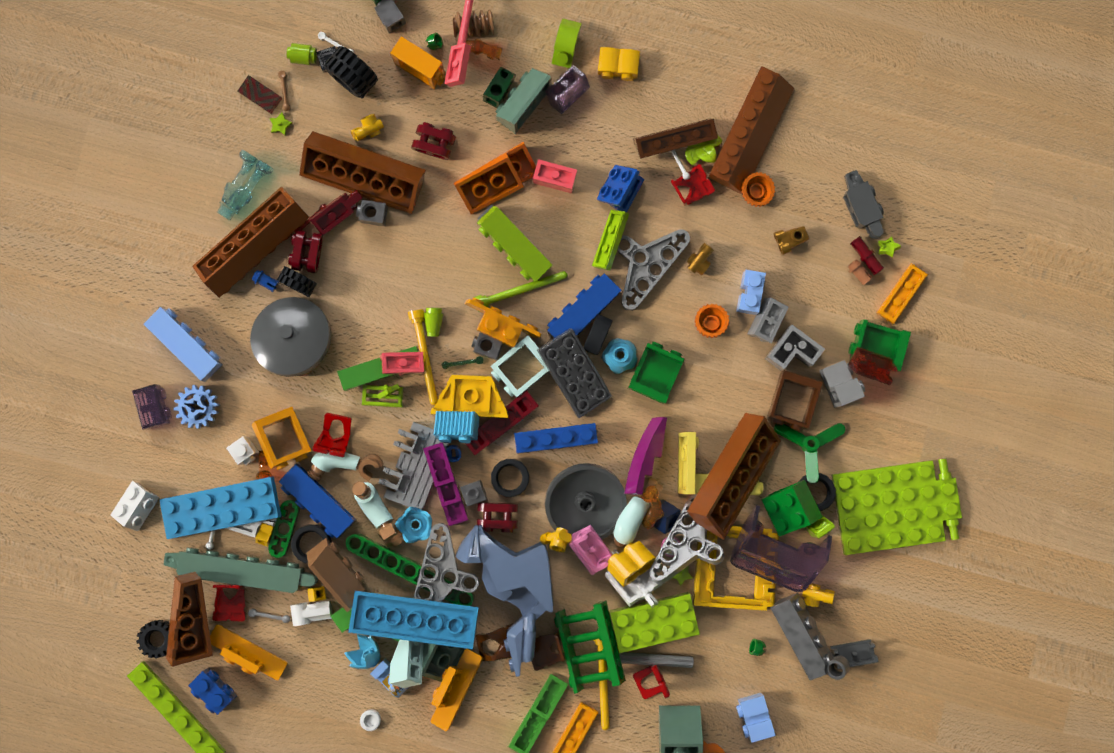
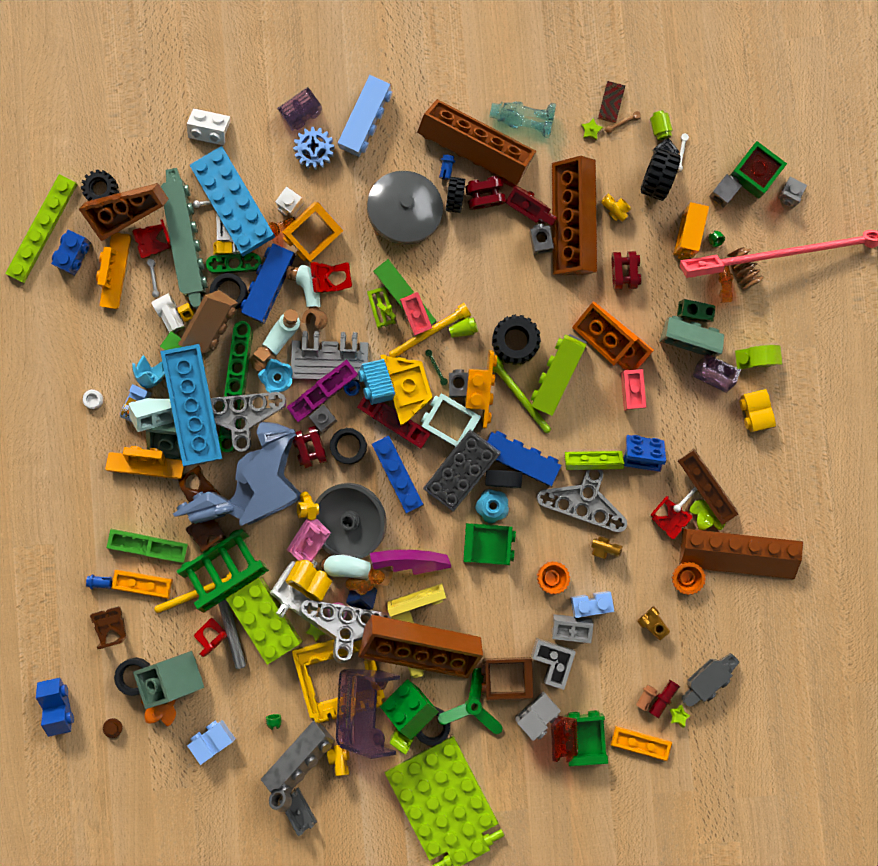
camera: 70 degrees right, 0 degrees up
(463, 256) = (518, 323): none -> black tyre

